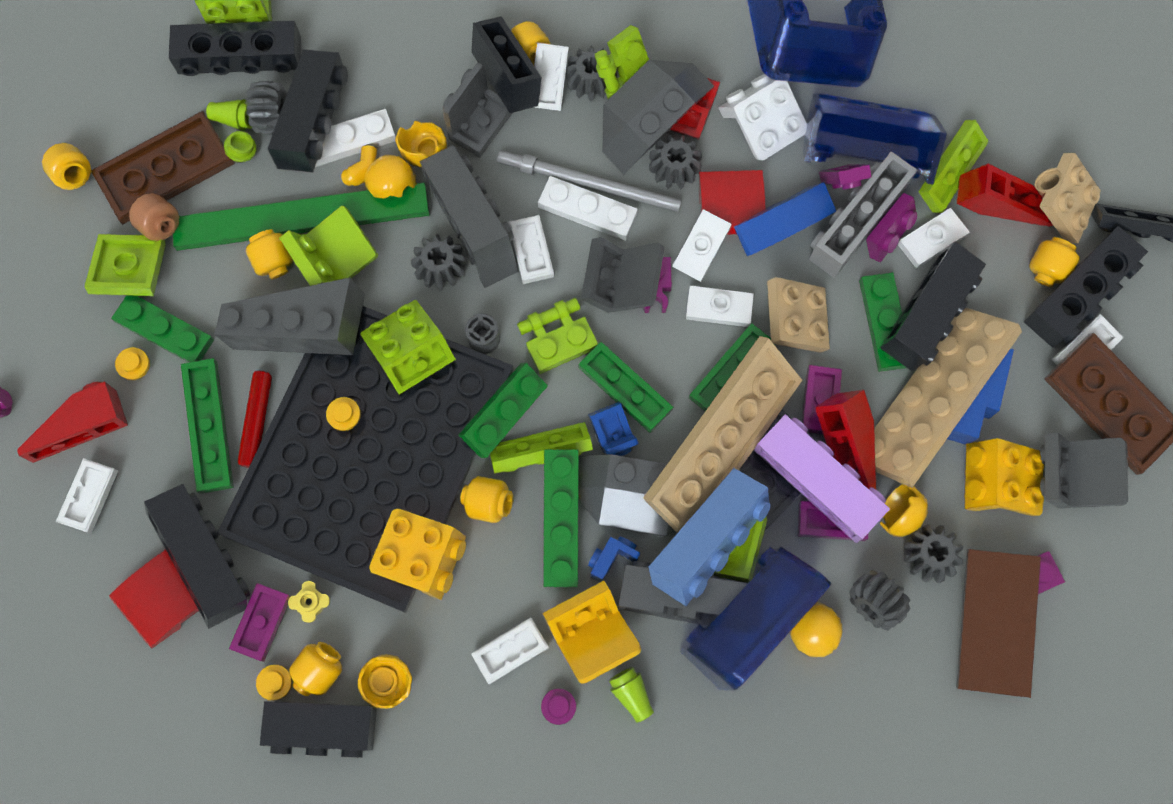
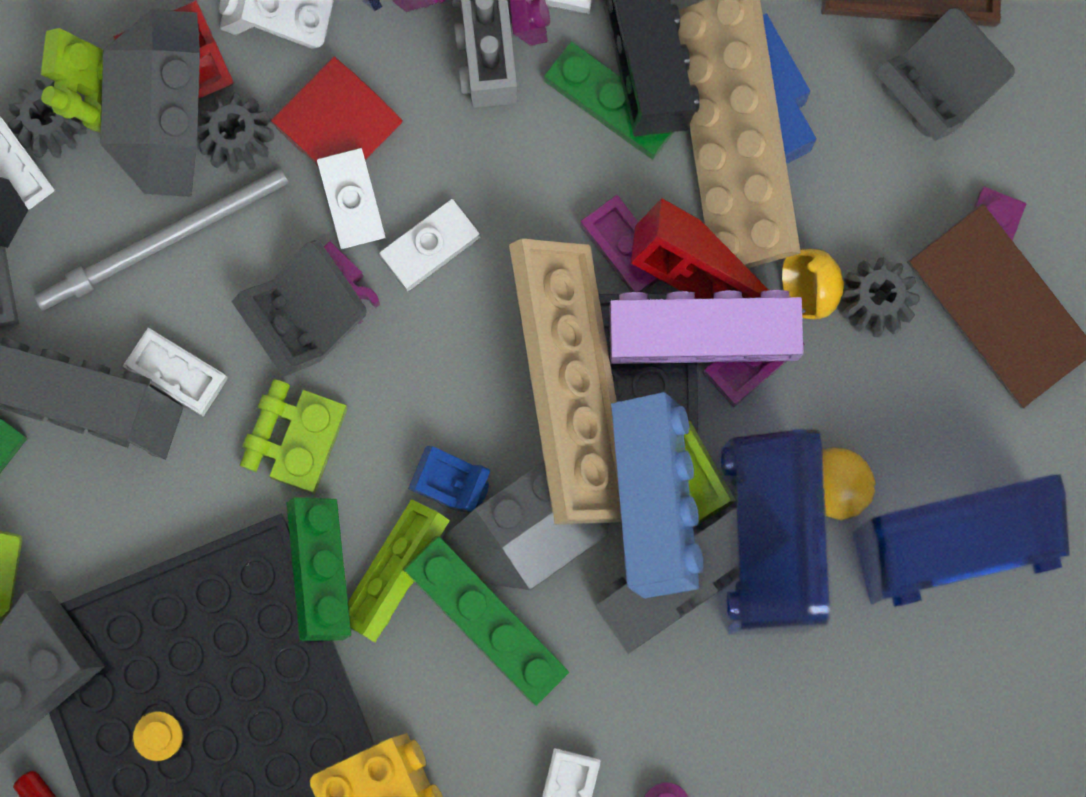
camera: 45 degrees left, 5 degrees up
(408, 346) = (152, 600): lime bracket -> none
(426, 259) = (87, 497): dark grey gear -> none
(483, 340) = (222, 517): dark grey wheel -> none
(487, 499) = (392, 675): yellow head -> none
(587, 208) = (189, 270): white plate -> none
(592, 633) = (630, 704): yellow bracket -> none
(603, 559) = (569, 620): blue bracket -> none
(625, 387) = (417, 423): green plate -> none
(631, 692) = (723, 722): lime cone -> none
(718, 376) = (502, 304): green plate -> none
(785, 218) = (410, 88): blue slope -> none
(798, 315) = (520, 179): tan plate -> none
(859, 723) = (964, 539): none -> clear blue windscreen
(879, 600) = (872, 395): dark grey gear -> none
(1003, 477) = (874, 154): yellow bracket -> none

